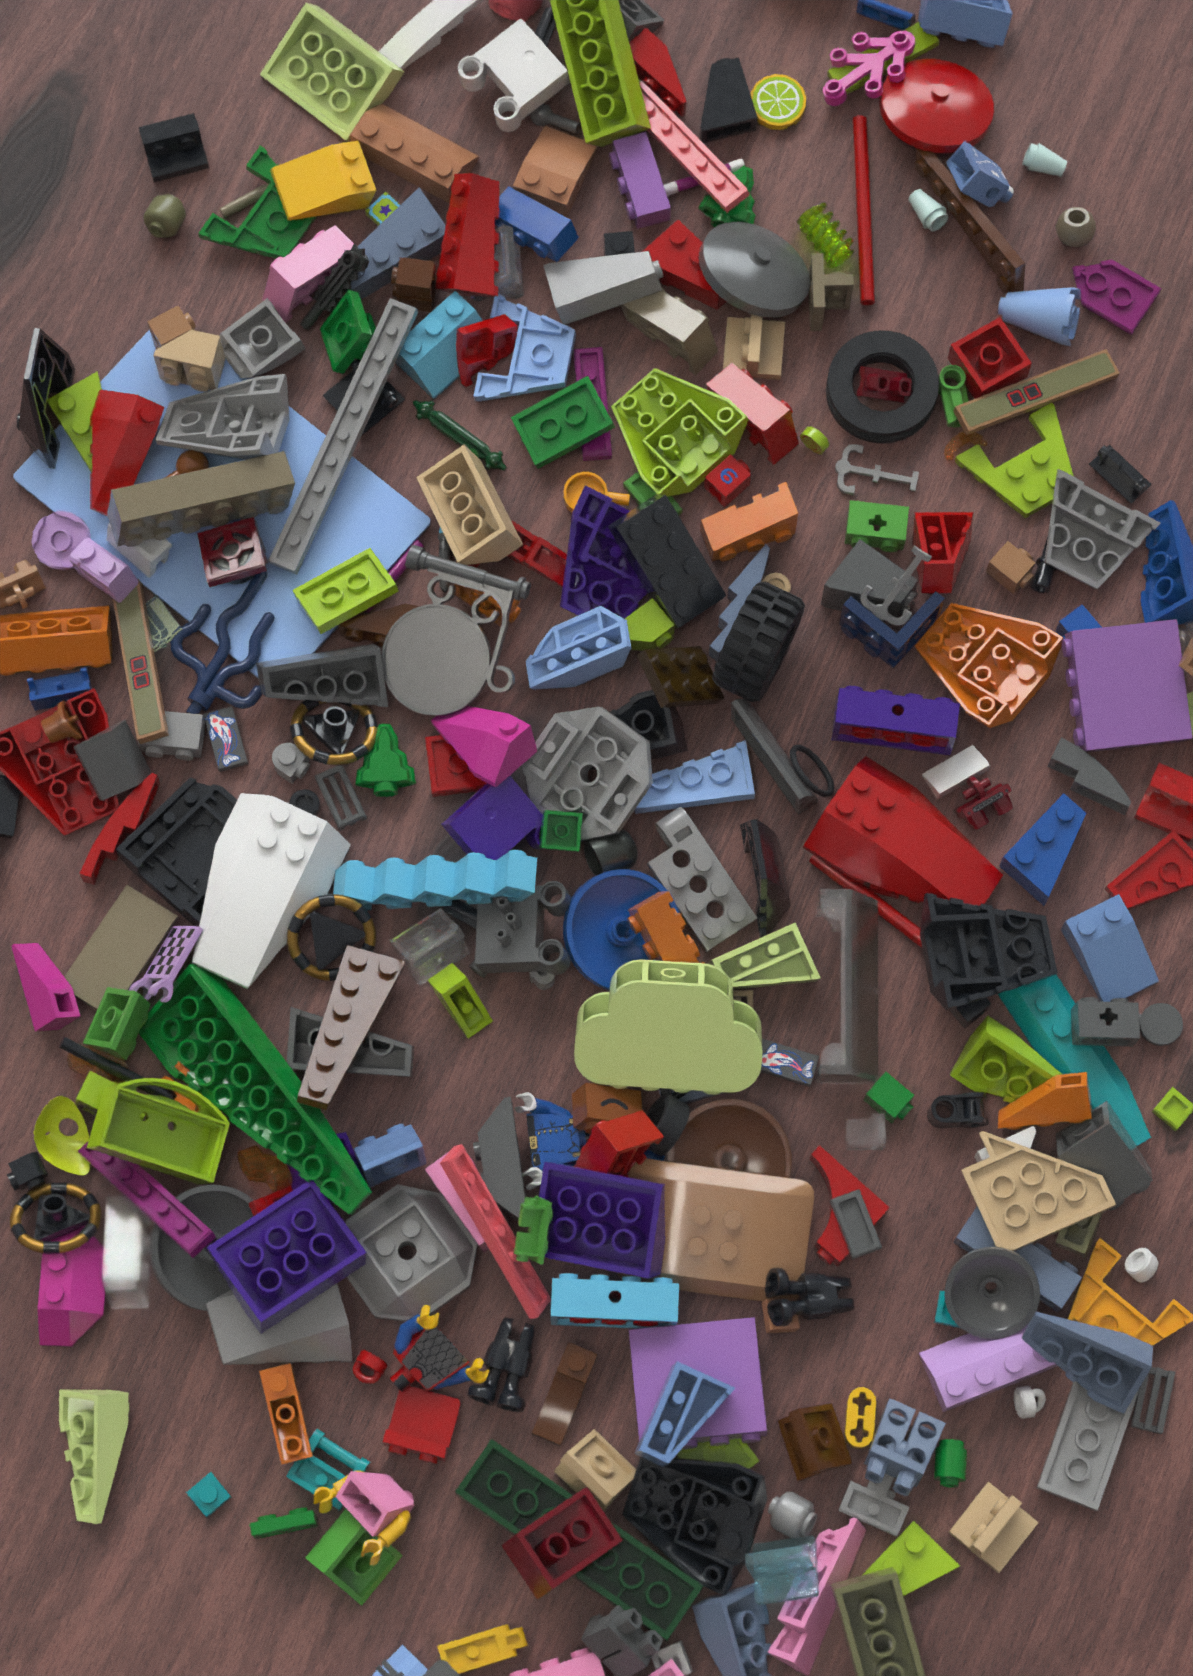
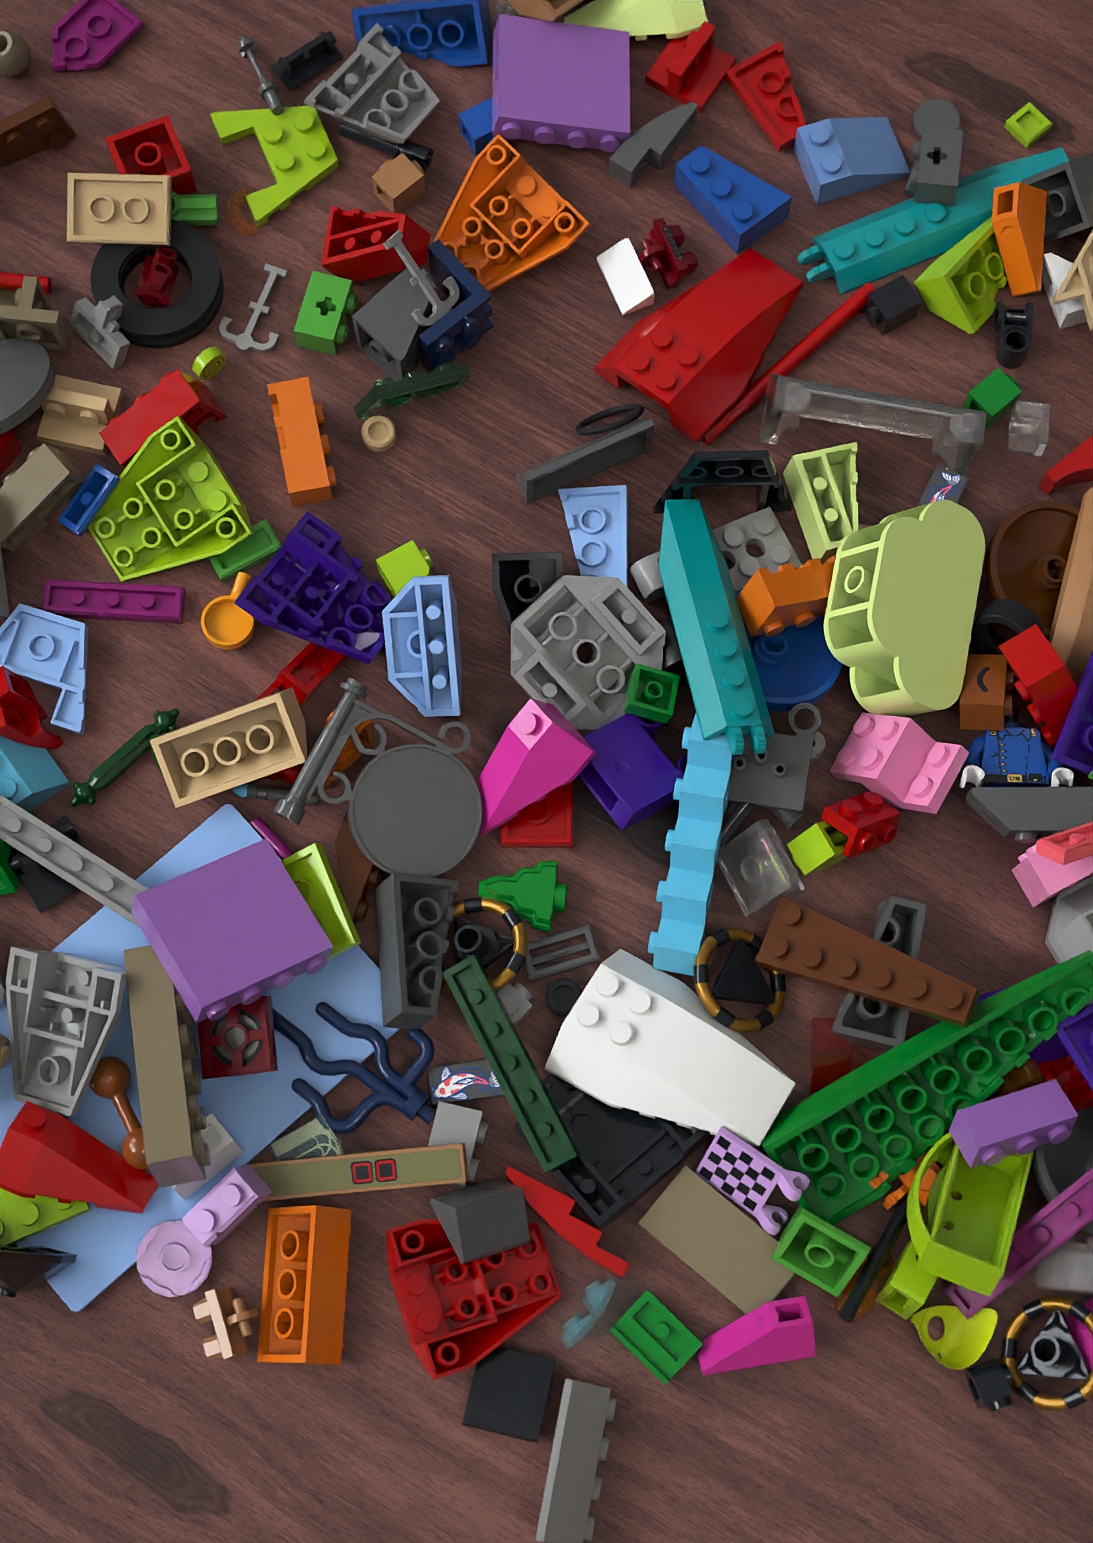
camera: 80 degrees left, 0 degrees up
(39, 909) = (656, 1336): none -> green plate
(52, 690) = (370, 1280): blue hinge -> none
(57, 858) = (597, 1299): none -> clear light blue slope
(61, 724) = (428, 1278): dark orange piece -> none
(230, 1159) = (1013, 1124): none -> medium lavender brick
(237, 762) = (511, 1063): none -> dark green plate
(275, 1019) = (828, 1055): none -> clear red slope
(310, 529) = (231, 930): none -> medium lavender brick
(390, 1154) = (1015, 939): medium blue slope -> none
(478, 1020) = (864, 820): none -> red bracket
(534, 1045) = (899, 762): none -> bright pink bracket
(562, 422) = (134, 633): green plate -> none
(621, 868) = (711, 630): none -> teal hinge
(667, 560) = (334, 532): black brick -> none
(672, 366) = (89, 499): none -> blue slope
(680, 676) = (479, 539): dark brown plate -> none
(728, 480) = (241, 462): red brick -> none
(737, 593) = (386, 465): sand blue slope -> none
(758, 641) = (457, 441): black tyre -> none
(817, 607) = (392, 394): none -> clear green wing
(829, 347) = (100, 329): none -> light grey hinge
(895, 720) = (564, 322): dark purple brick -> none
(934, 340) = (119, 209): none -> tan tile
(981, 950) = (850, 272): black wedge -> none
(1036, 392) = (198, 125): tile -> none
(1043, 312) = (104, 99): light blue cone -> none
(1081, 445) = (268, 90): none -> dark grey piece

